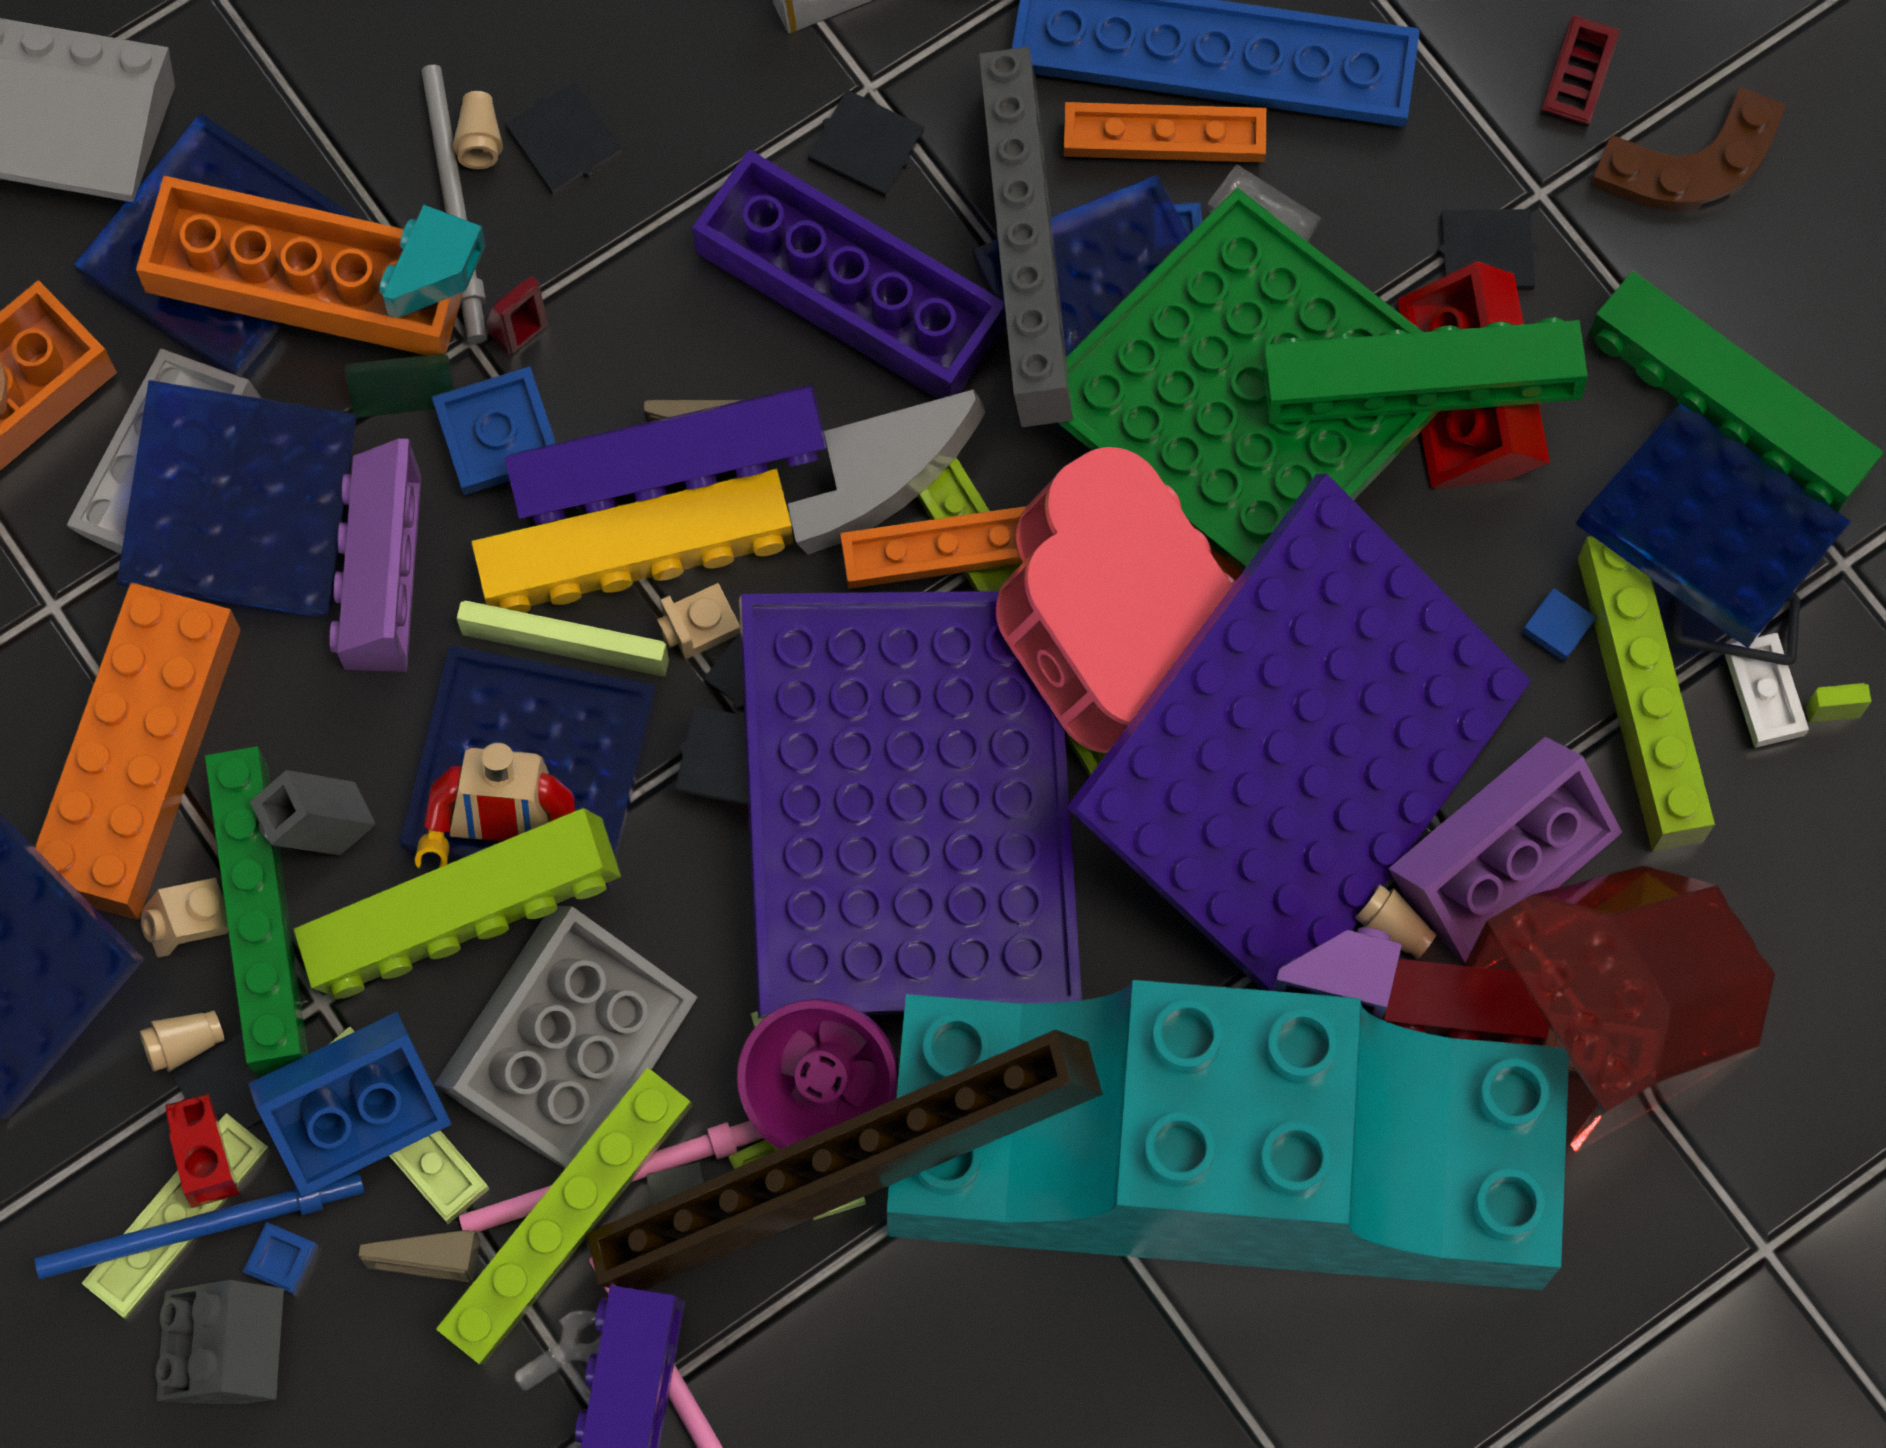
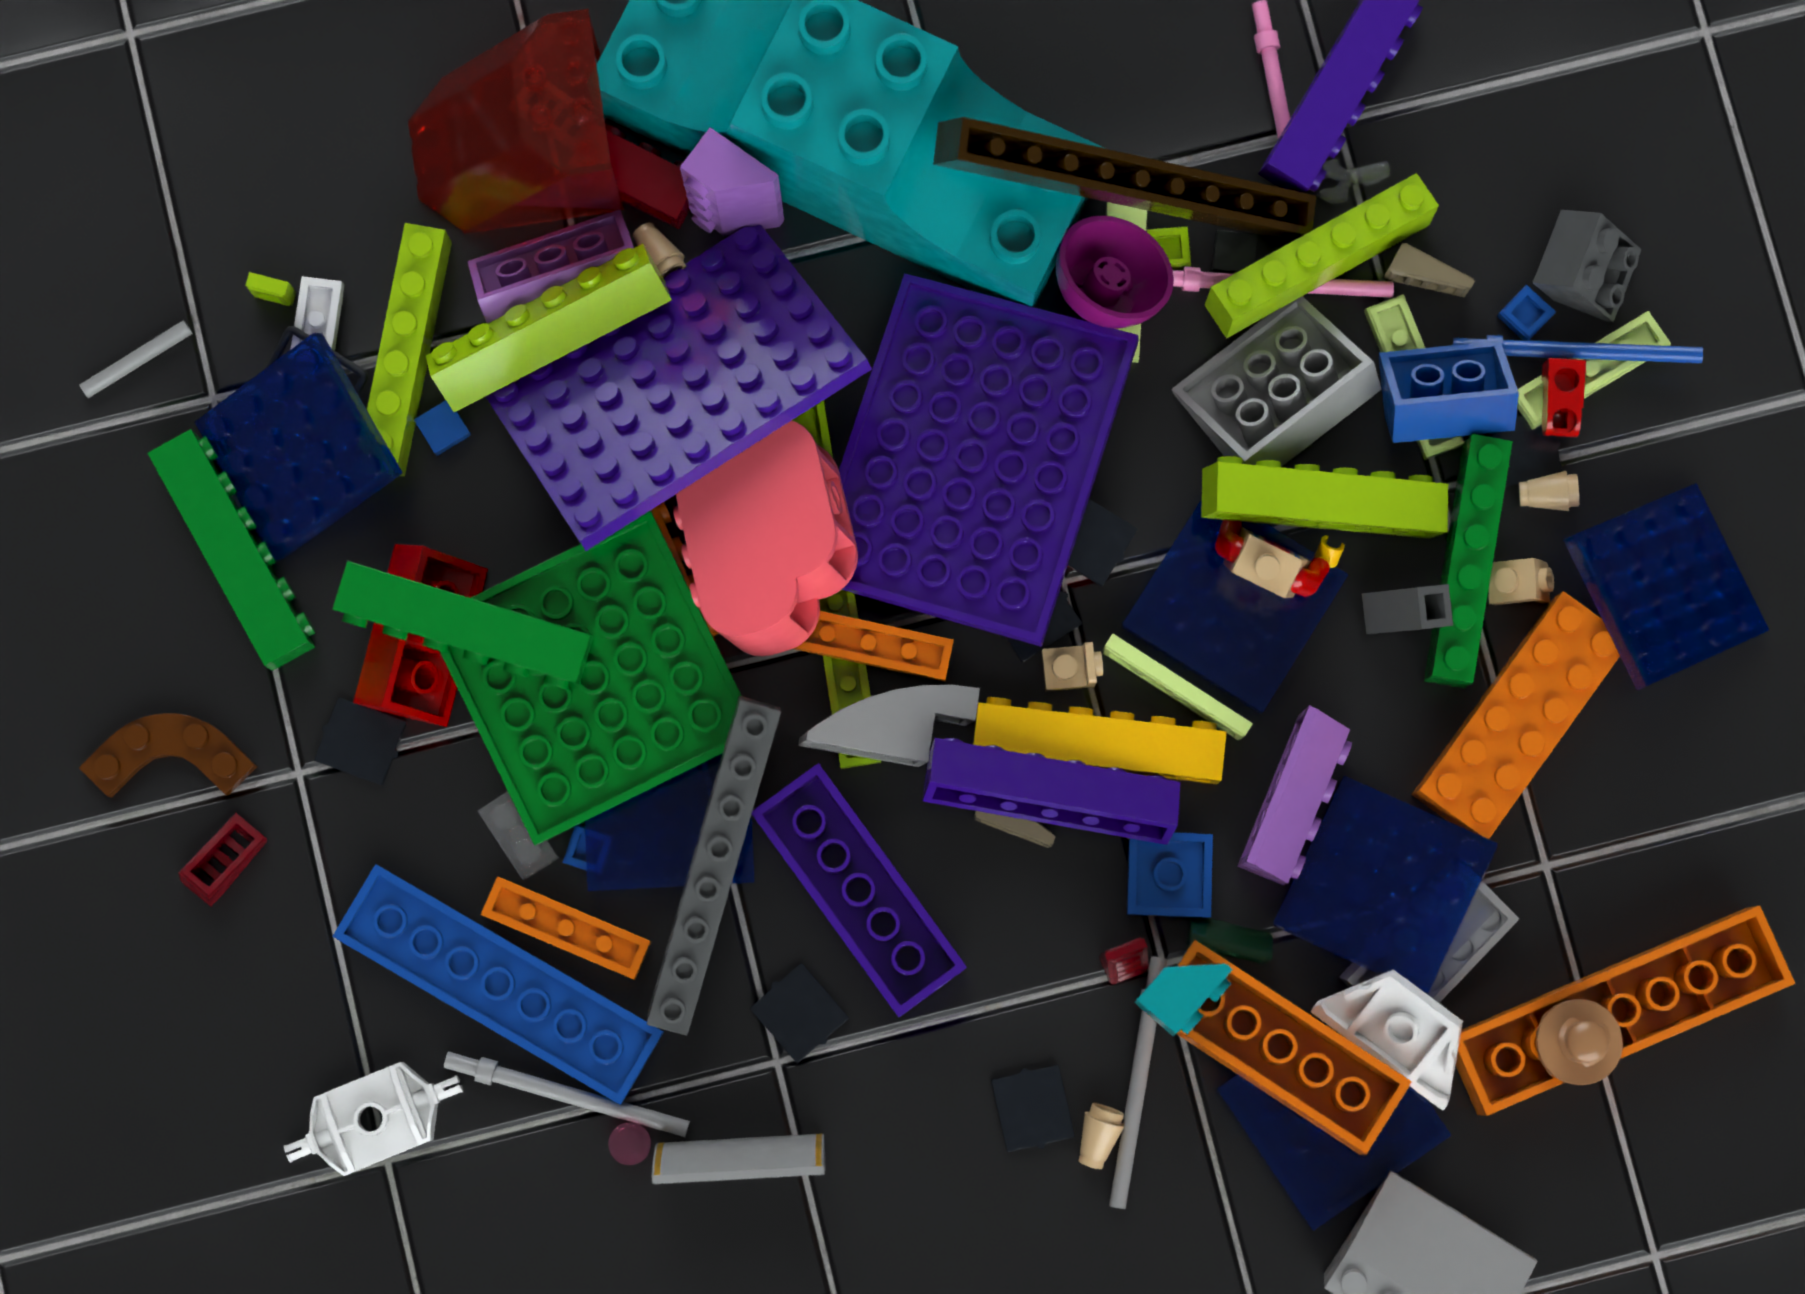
camera: 160 degrees left, 10 degrees up
(171, 336) = (1400, 1029): none -> white wing
(1483, 766) = (547, 327): none -> lime brick

